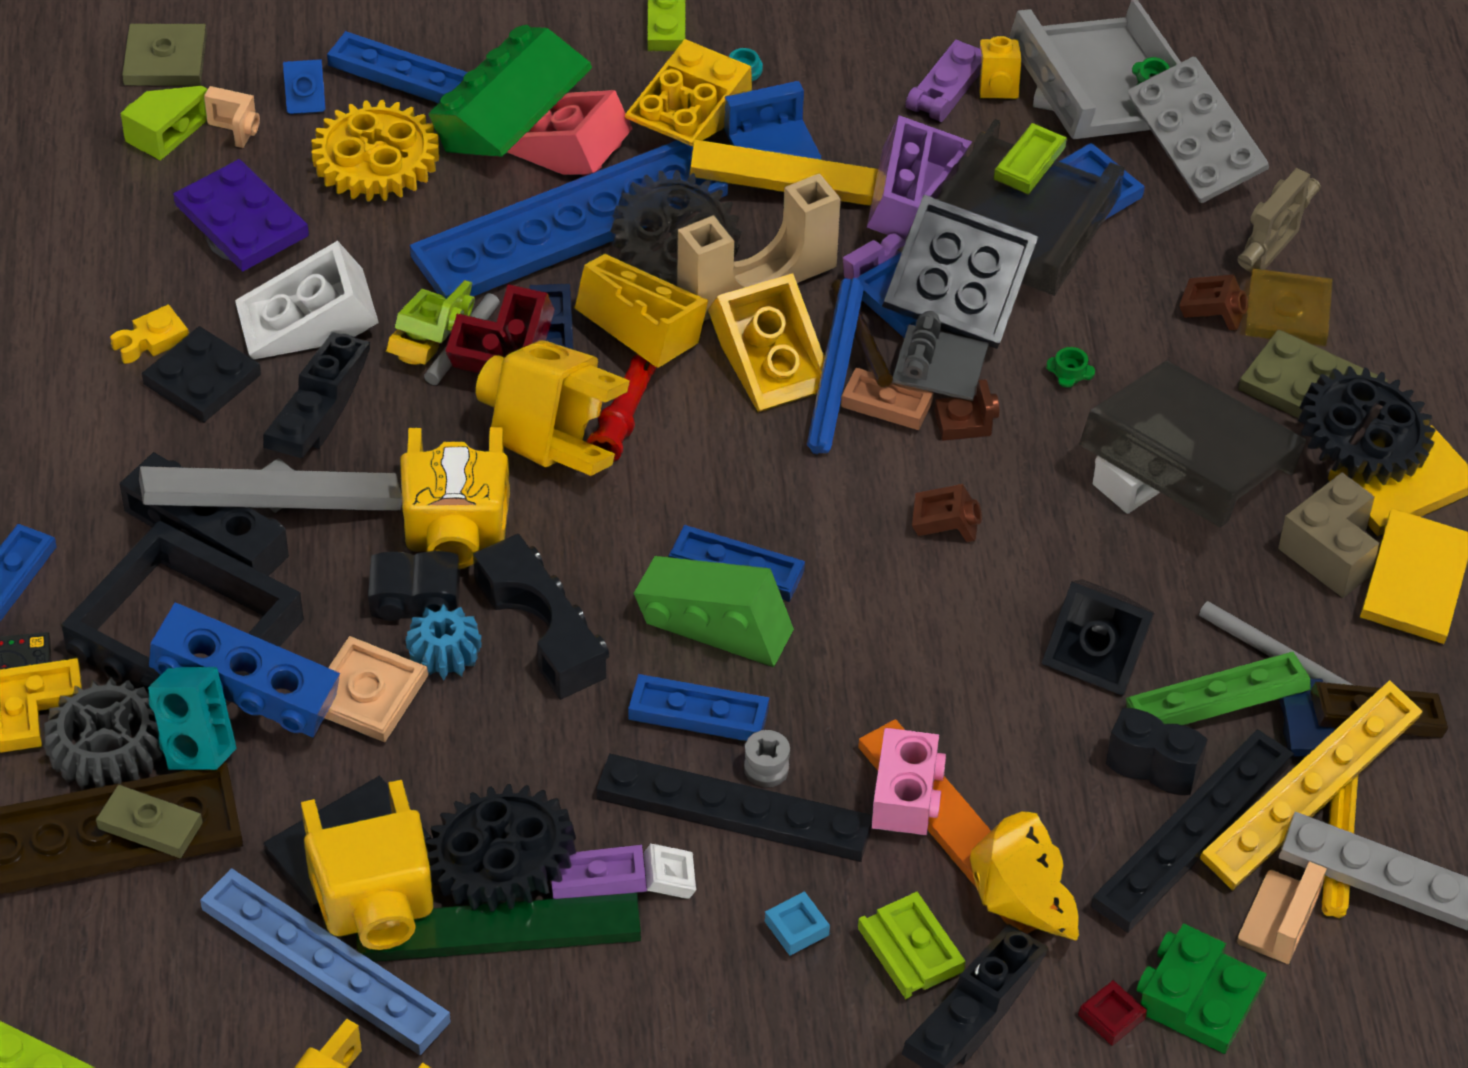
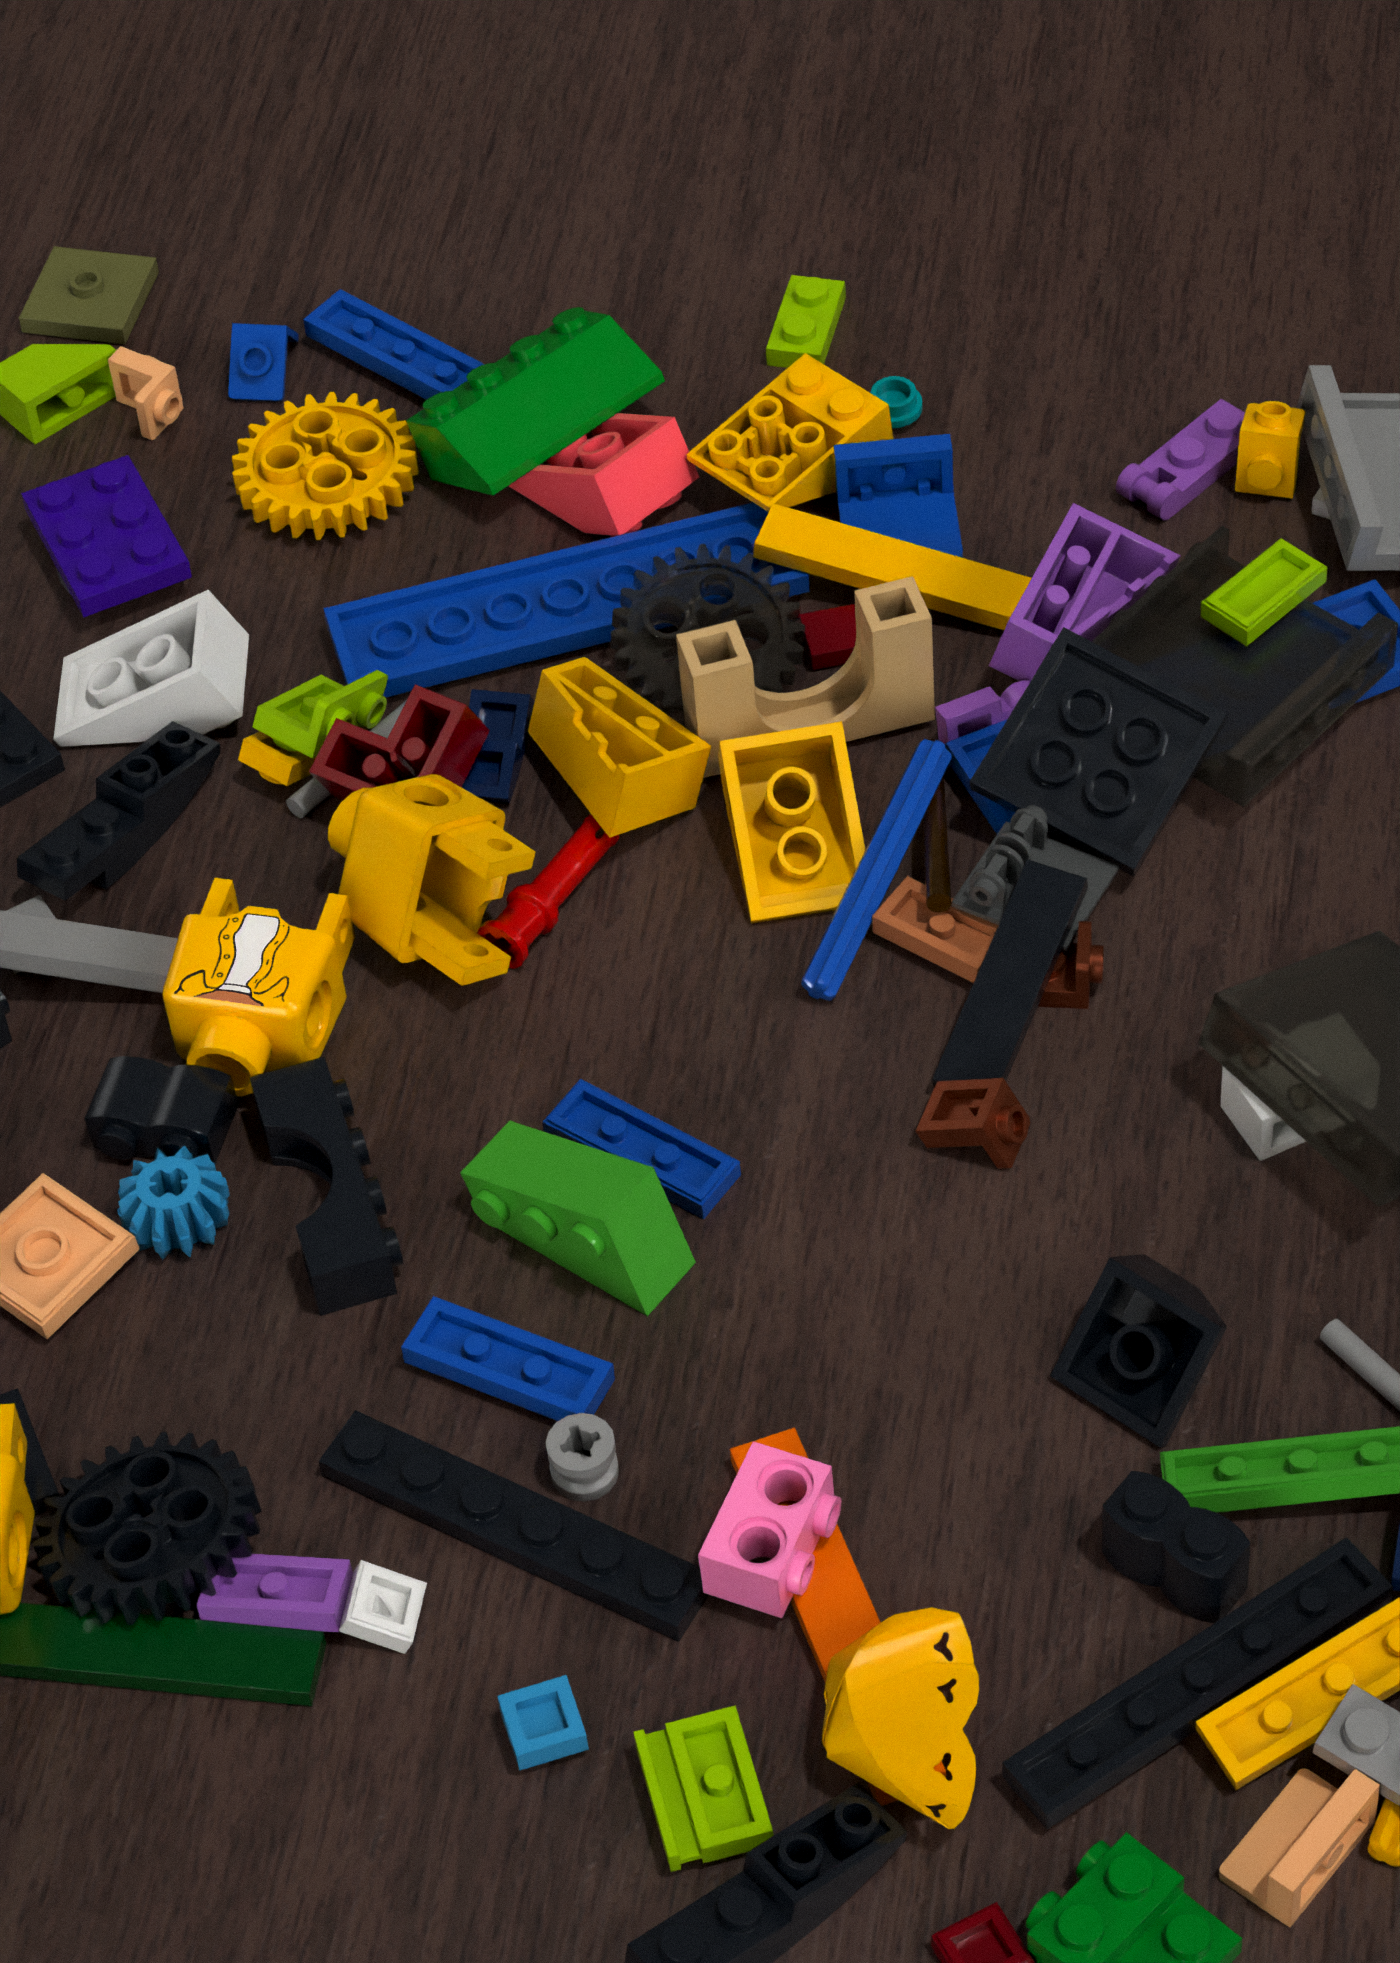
camera: 20 degrees right, 0 degrees up
(756, 221) = (829, 635): none -> dark red tile
(945, 419) = (1013, 975): none -> black tile
(1070, 366) = (1238, 919): green plate -> none

